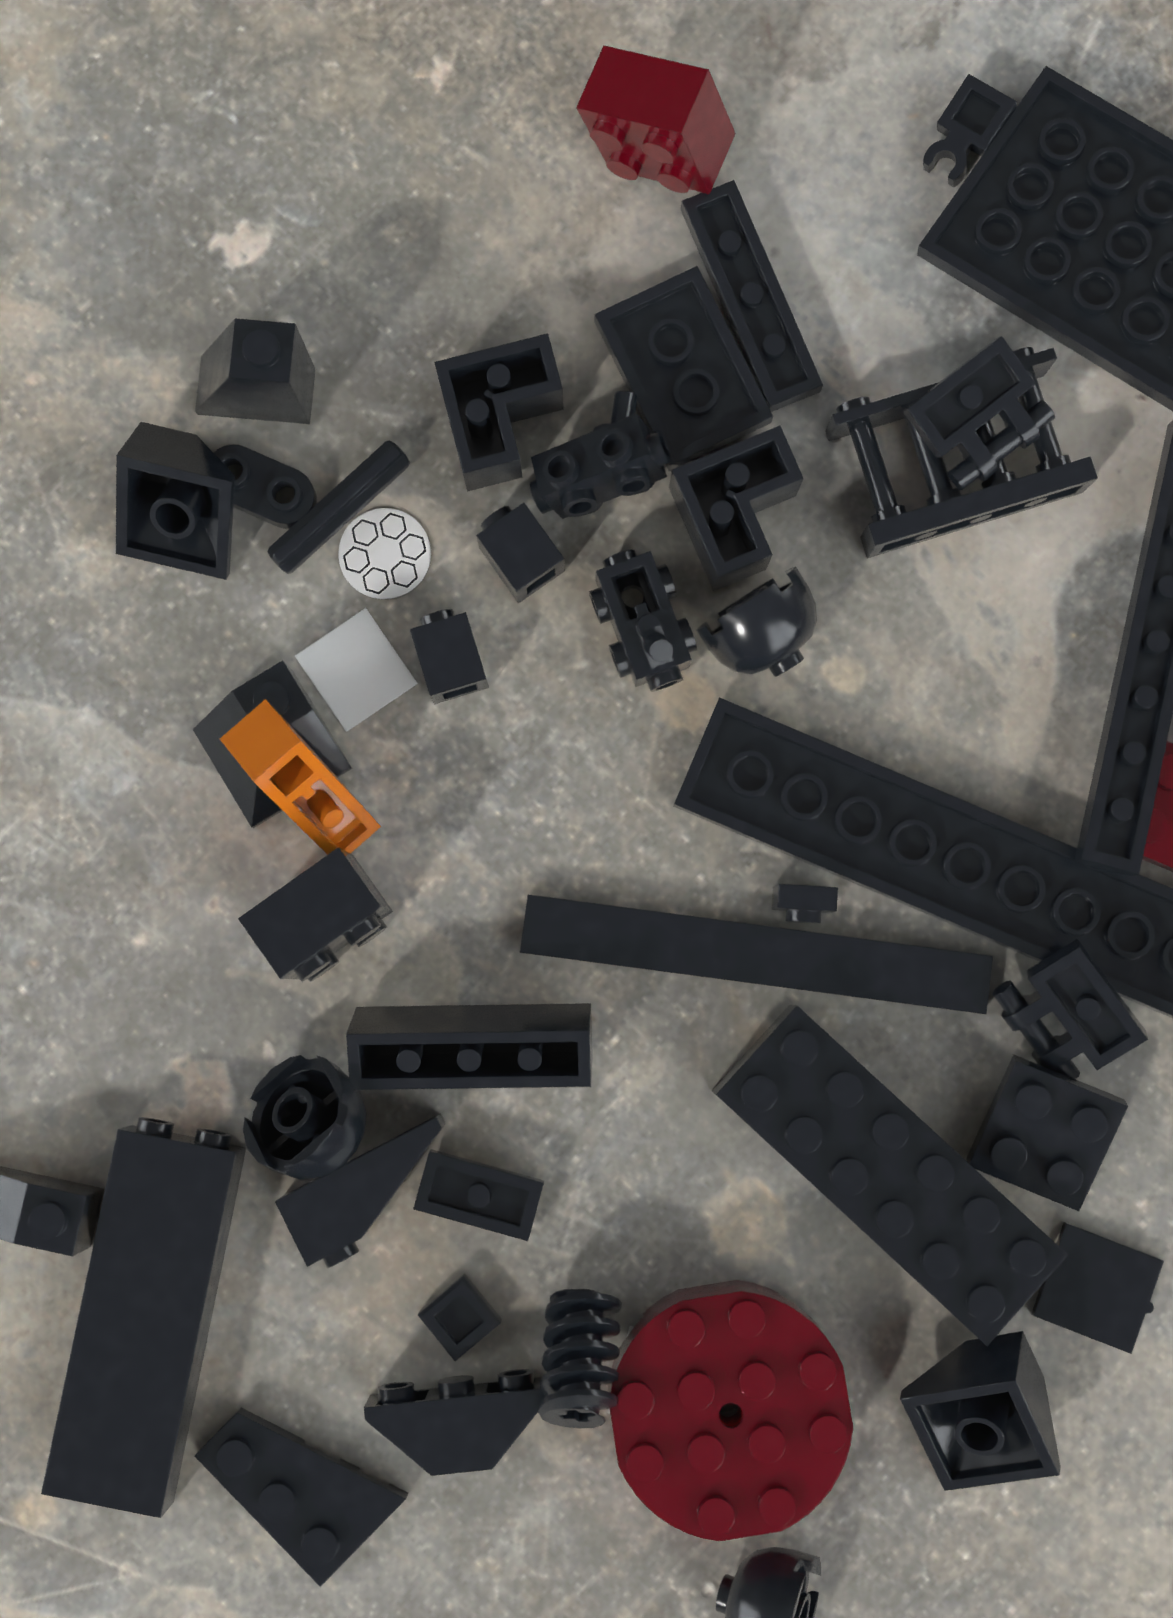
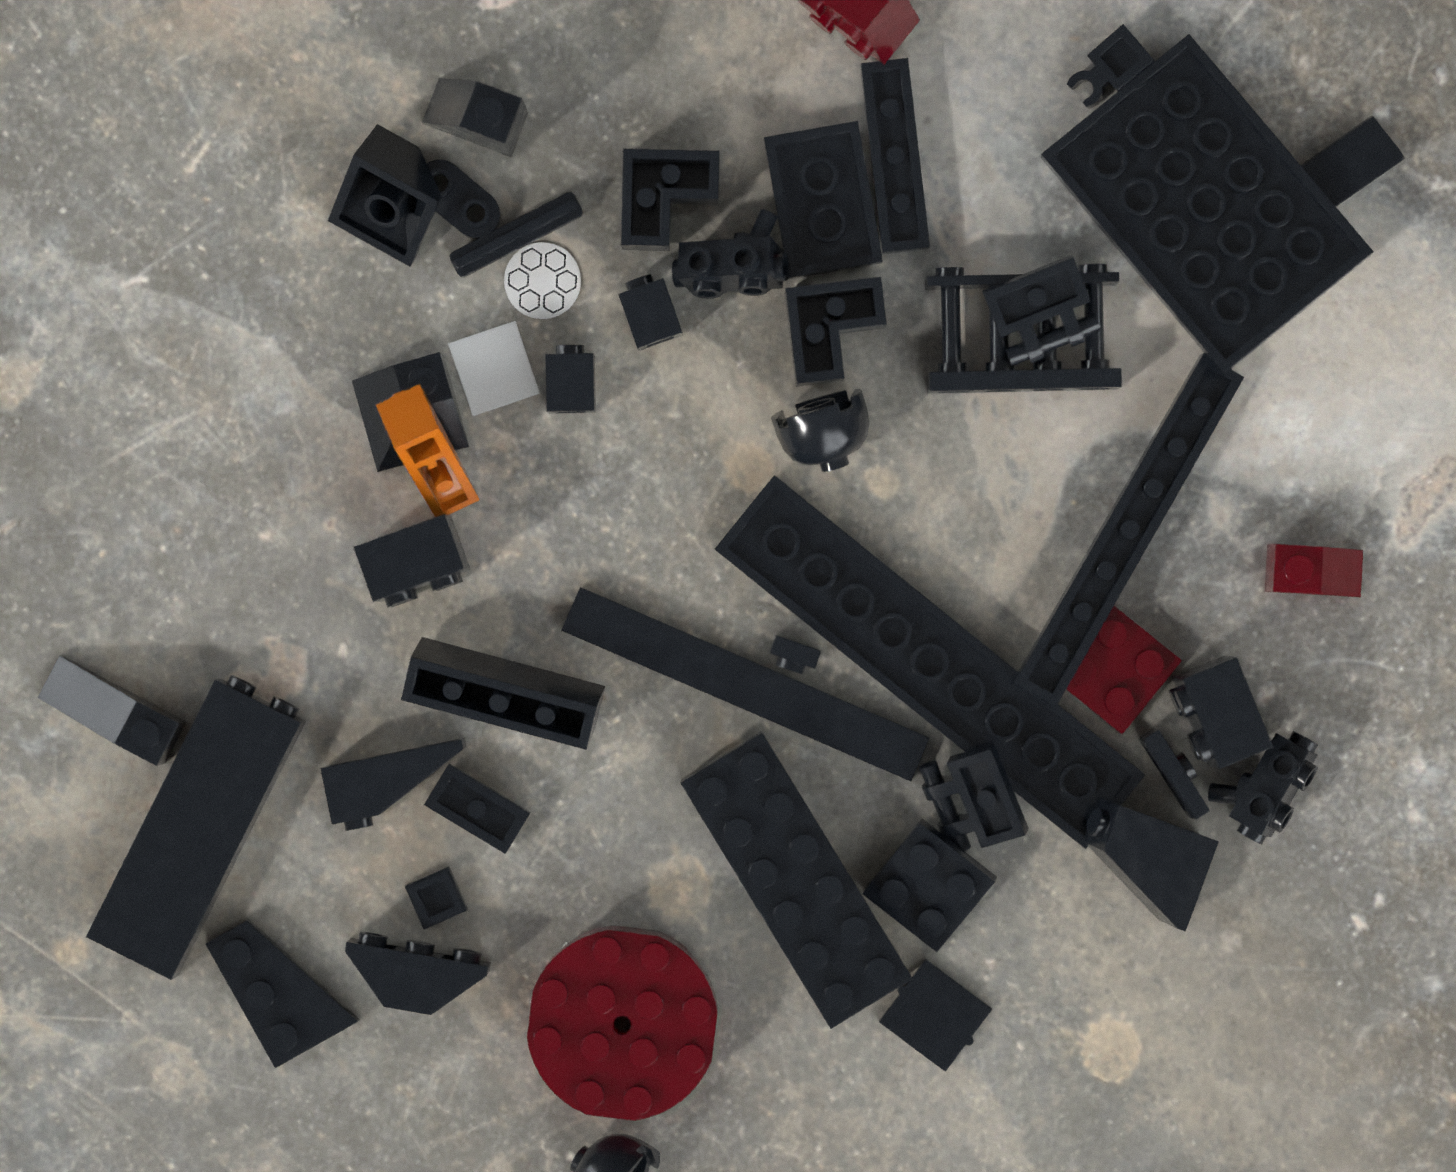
camera: 15 degrees right, 5 degrees up
(305, 1118) = (360, 711): black cylinder -> none
(577, 1356) = (519, 951): black piece -> none
(649, 637) = (733, 412): black brick -> none
(984, 1415) = (816, 1082): black slope -> none

